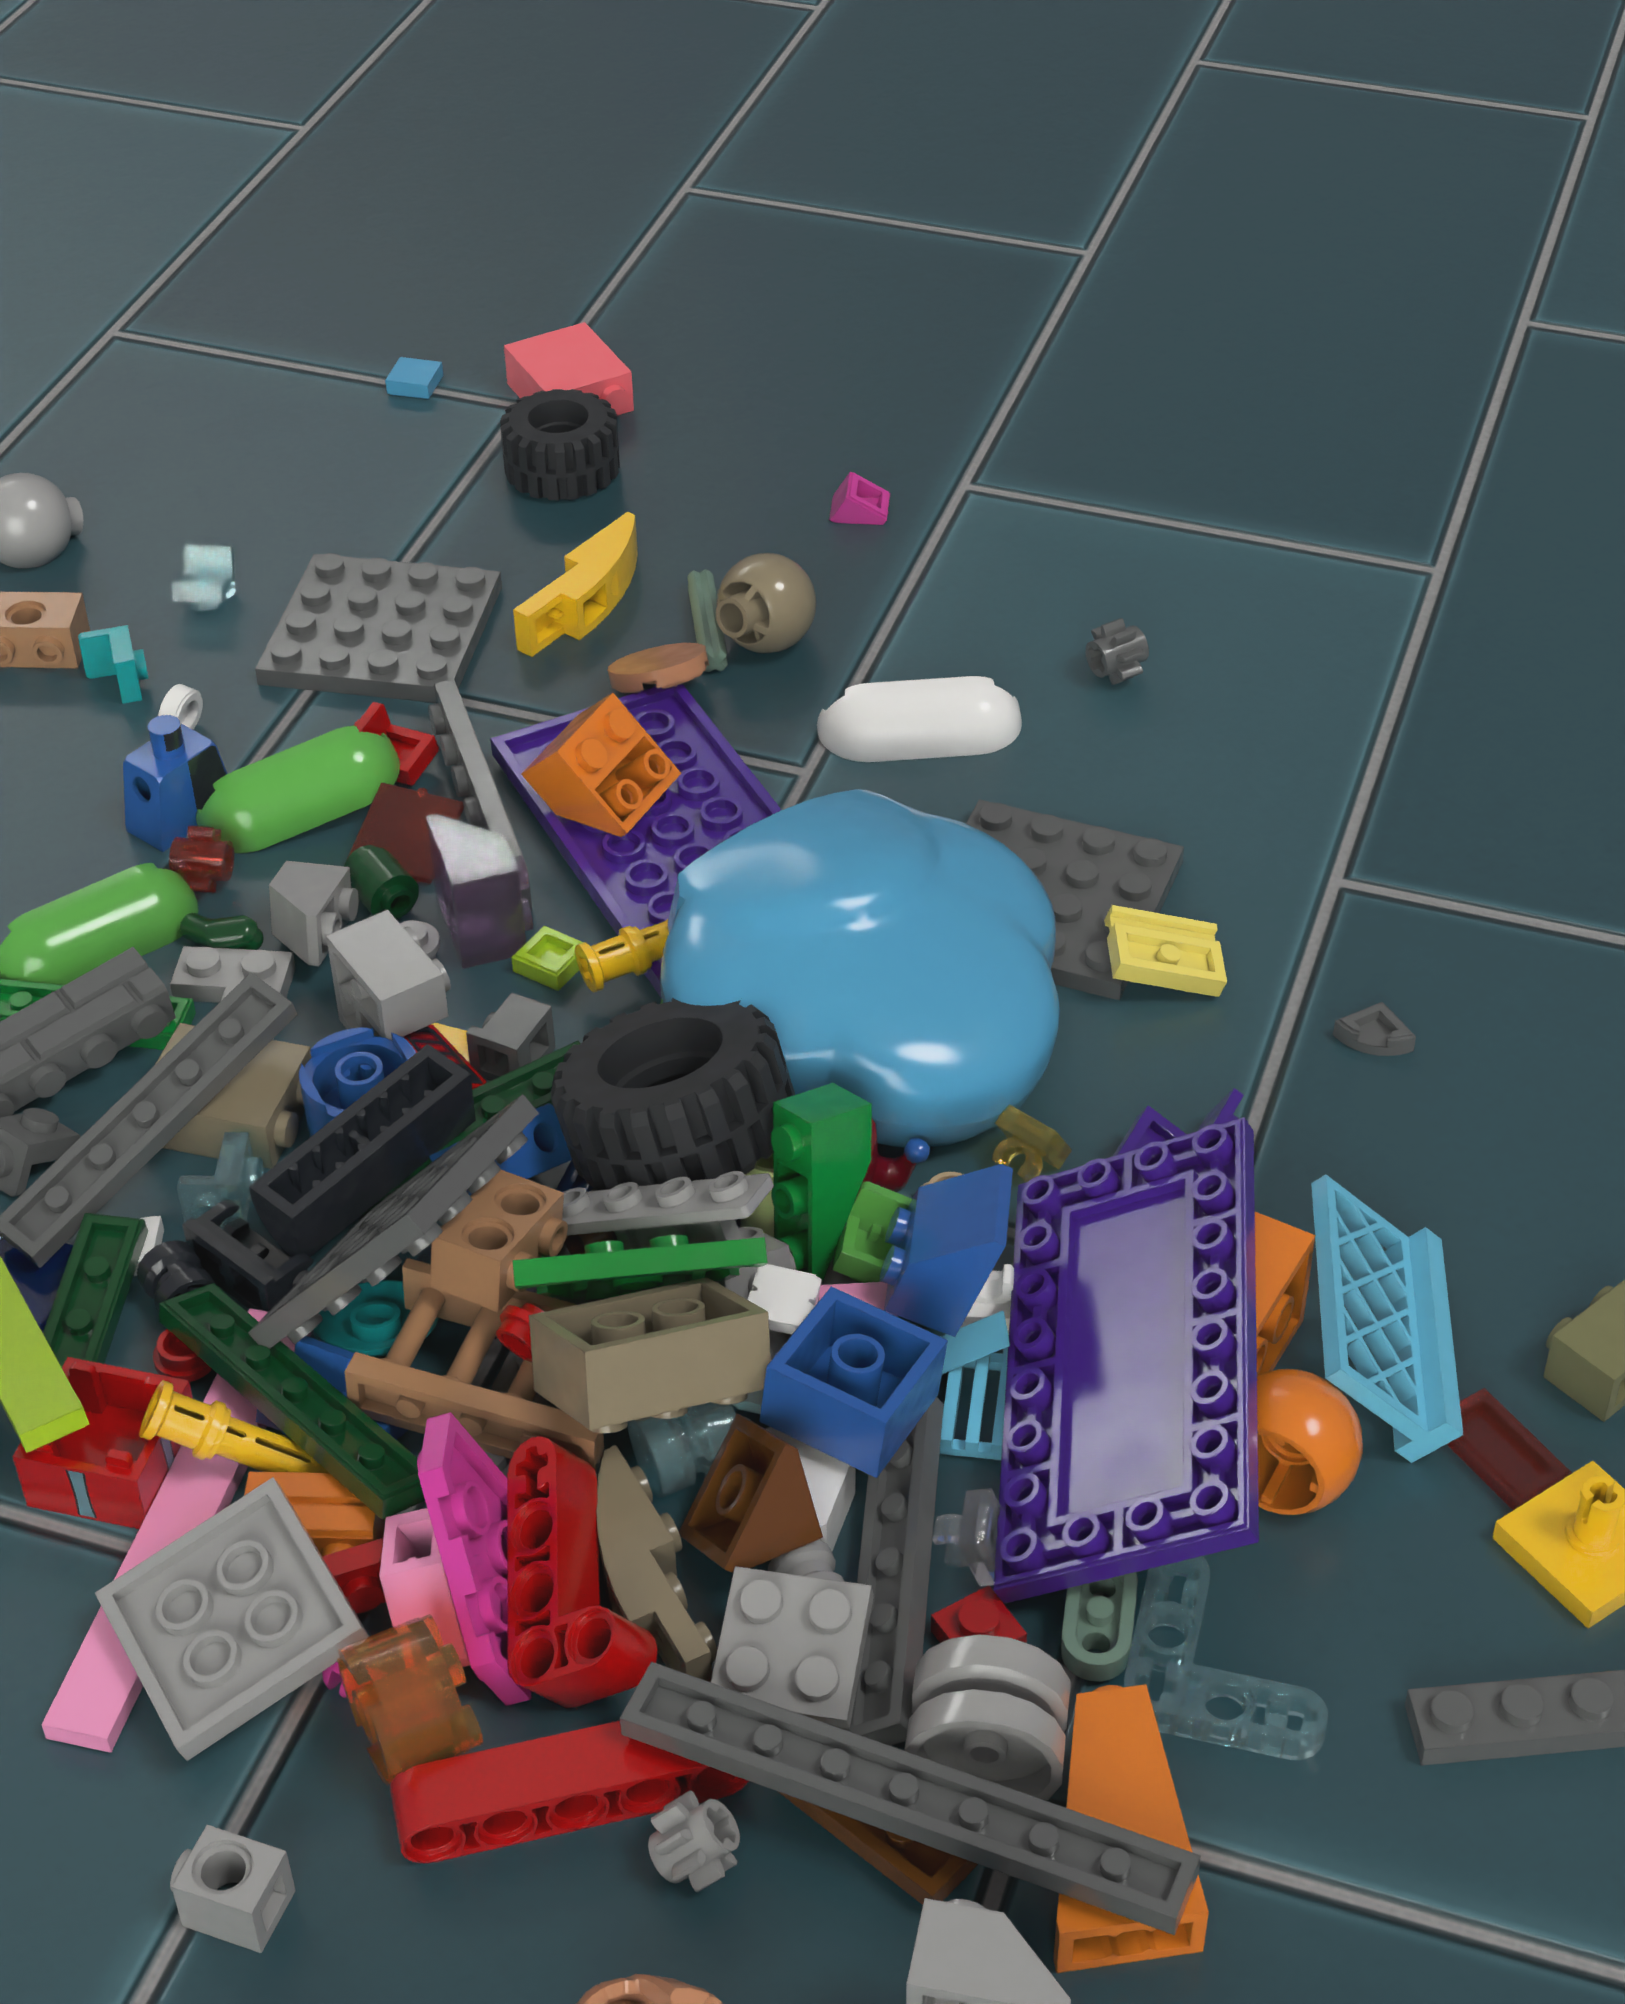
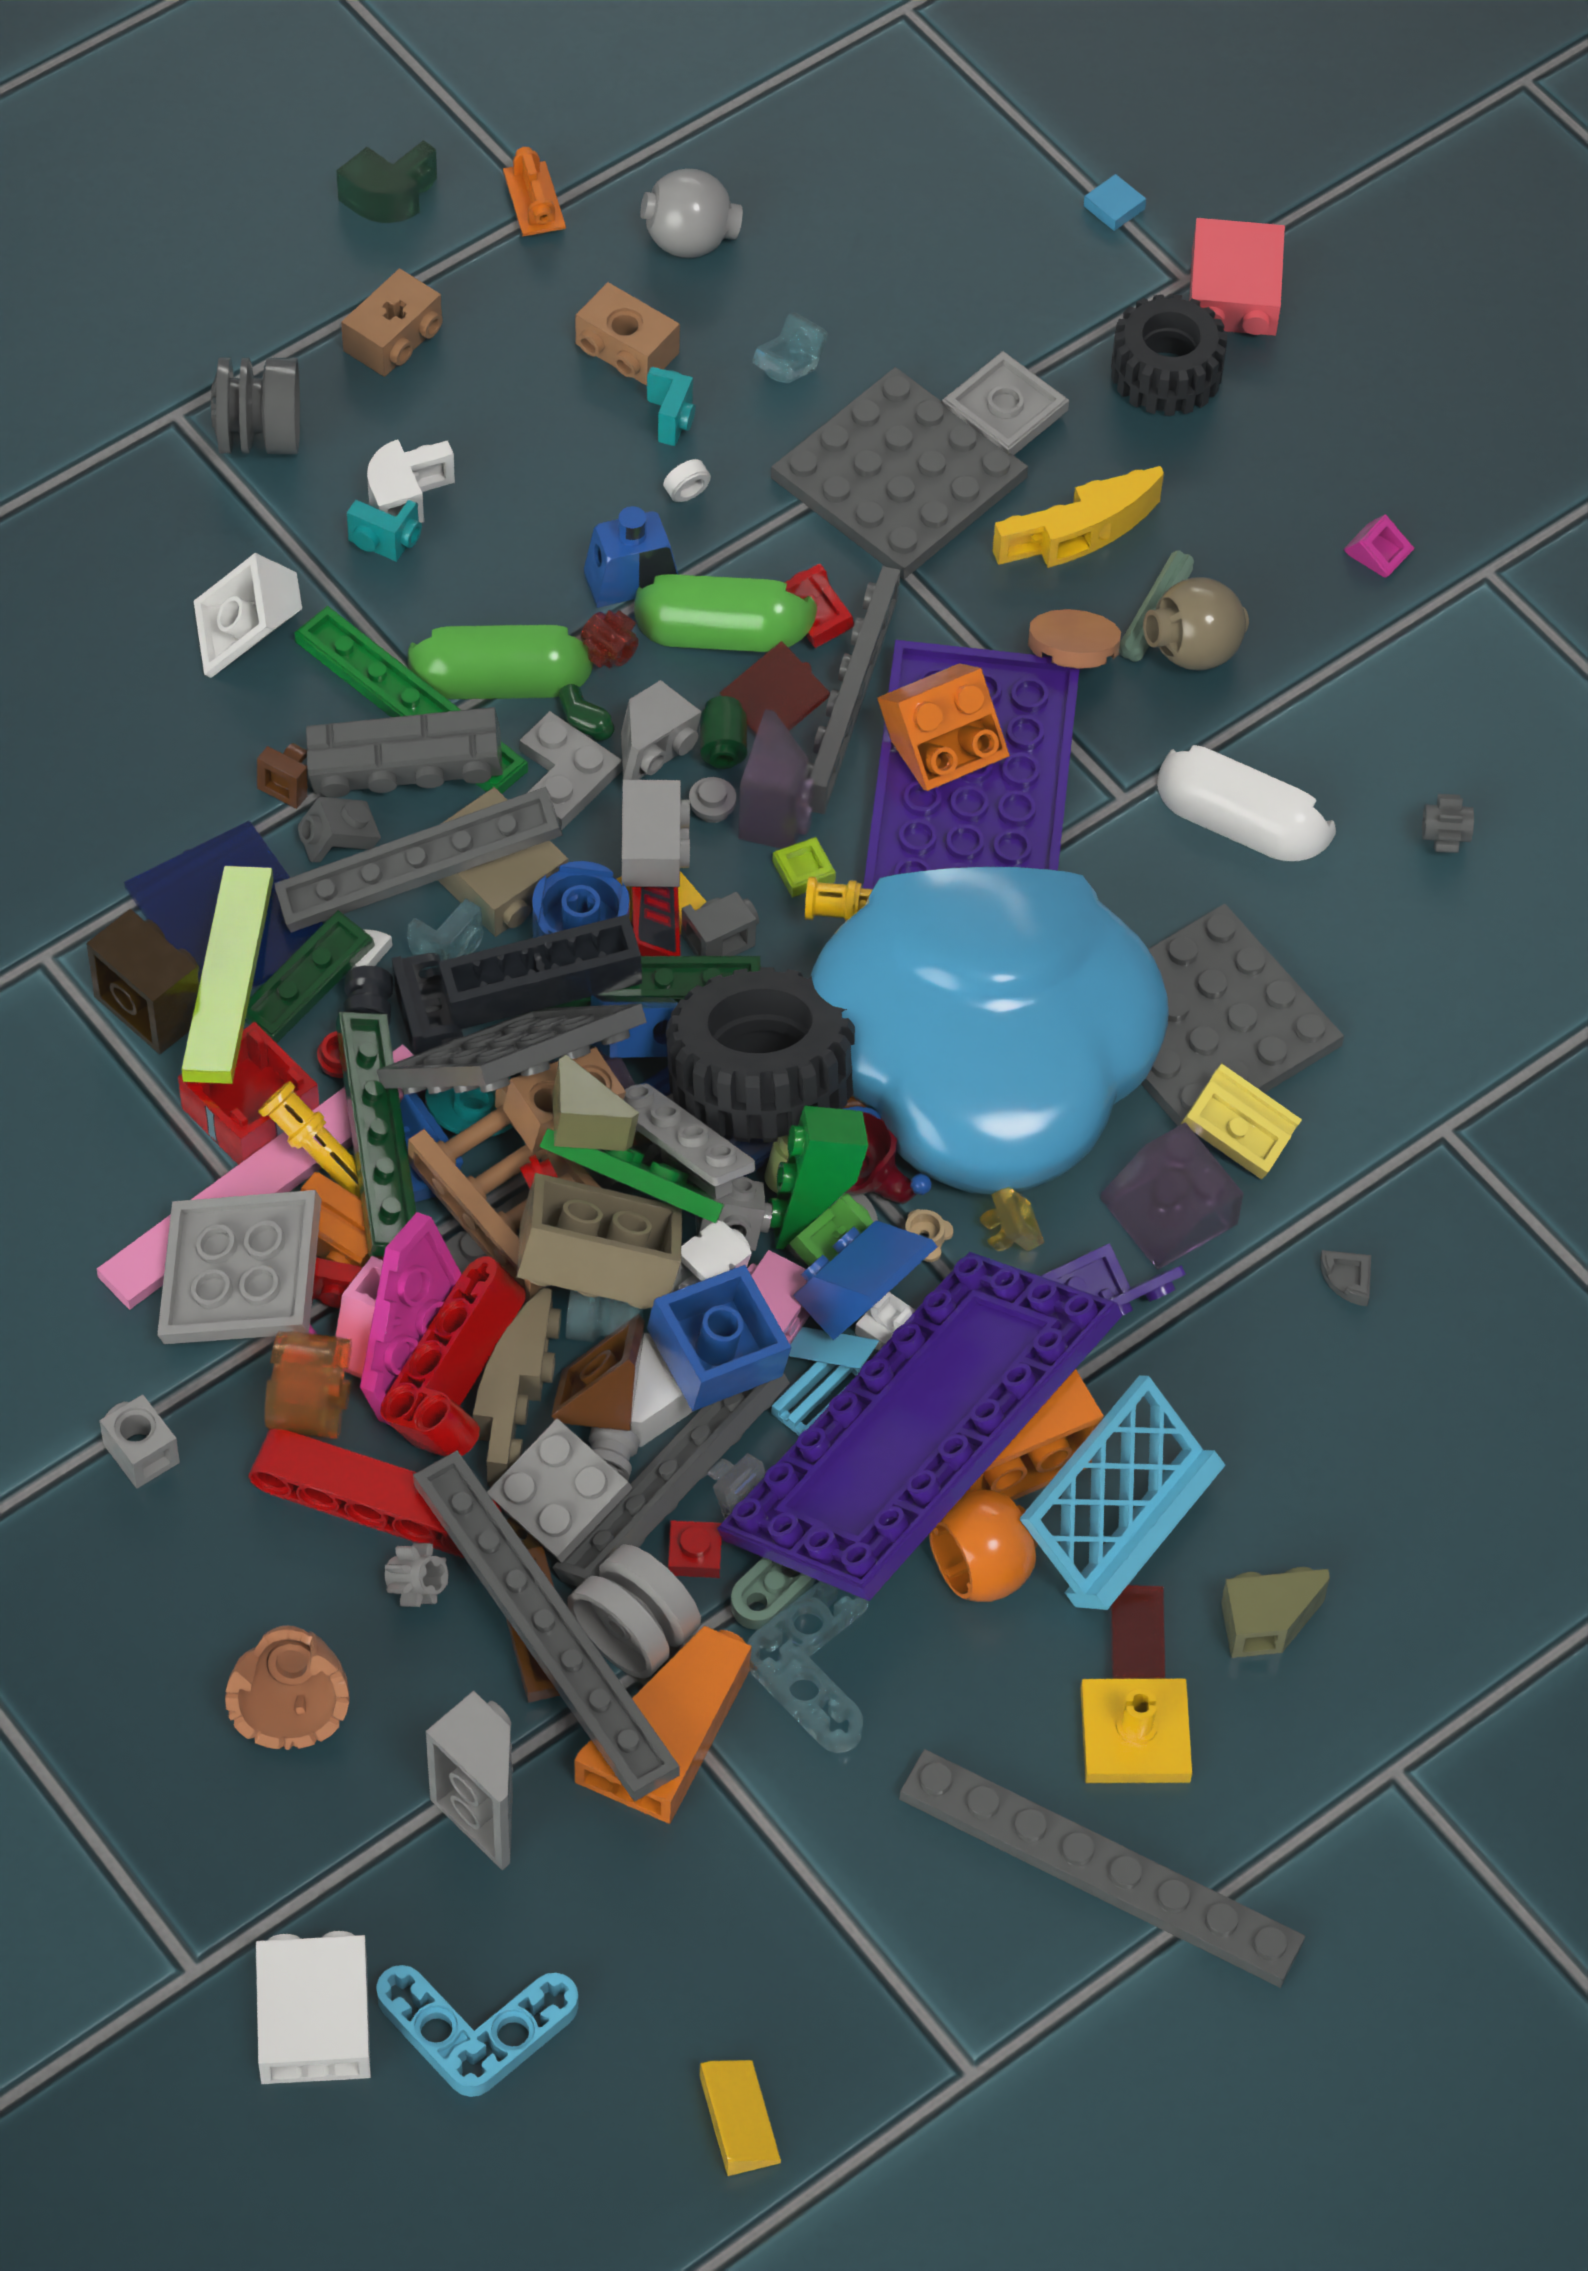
camera: 30 degrees right, 15 degrees up
(441, 535) = (1006, 403): none -> light grey plate
(550, 1214) = (589, 1112): none -> olive slope
(1162, 1042) = (1173, 1197): none -> clear purple slope

